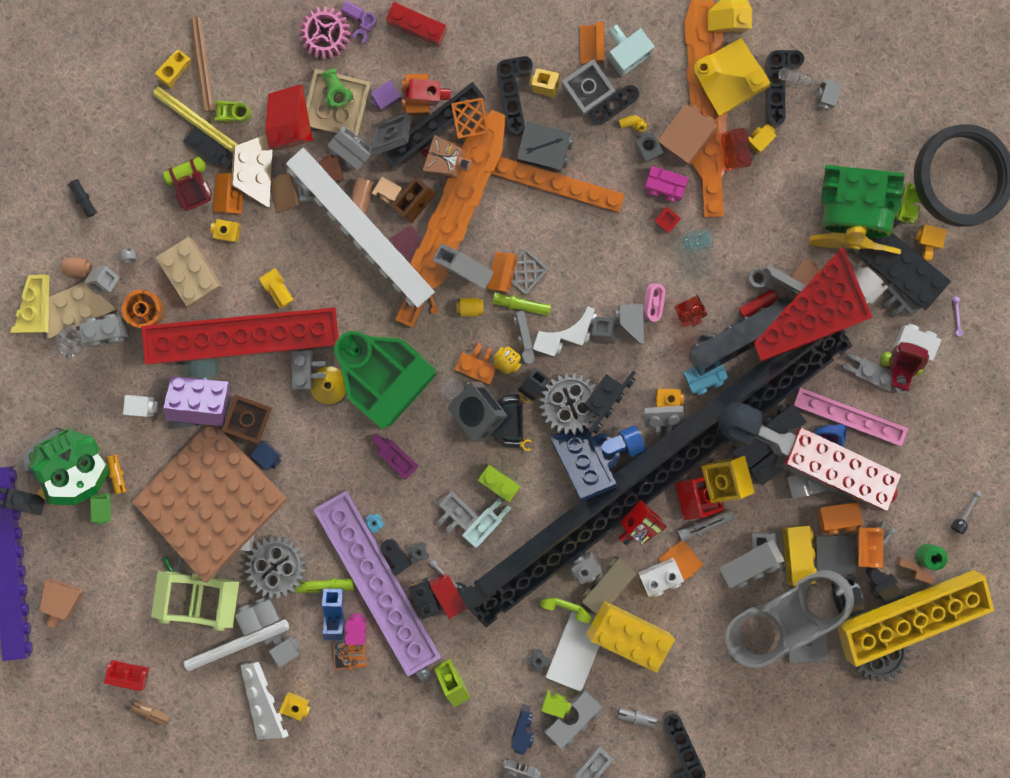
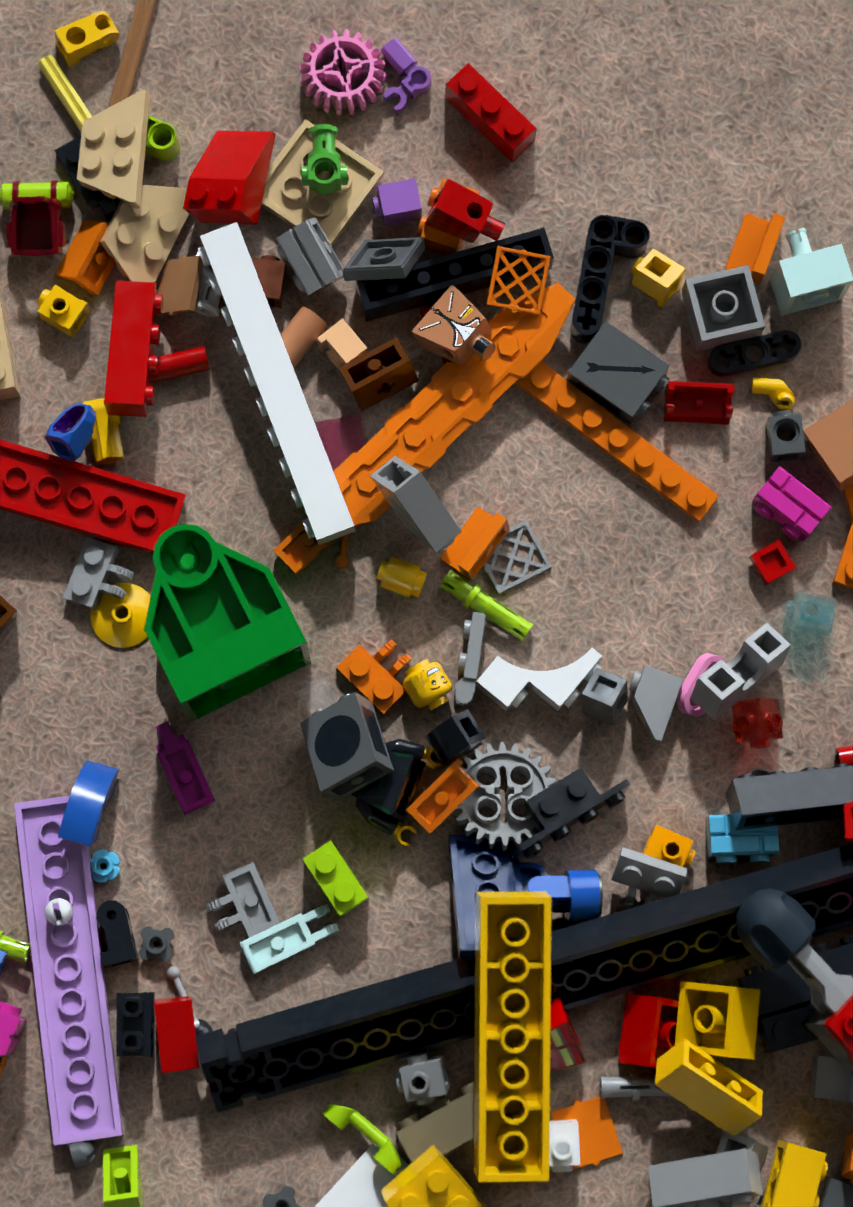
camera: 15 degrees right, 10 degrees down
(217, 129) = (115, 149): none -> tan wing
(260, 298) = (72, 431): none -> blue rock
(273, 239) = (131, 349): none -> red brick
(300, 237) = (181, 364): none -> red piece
(352, 494) = (87, 803): none -> blue brick
(364, 555) = (65, 909): none -> white hinge
(538, 418) = (442, 796): none -> orange panel
(594, 146) = (698, 402): none -> red hinge
(624, 532) = (512, 1036): none -> yellow brick
(670, 294) = (728, 683): none -> light grey arch
(736, 516) = (709, 1087): none -> yellow brick

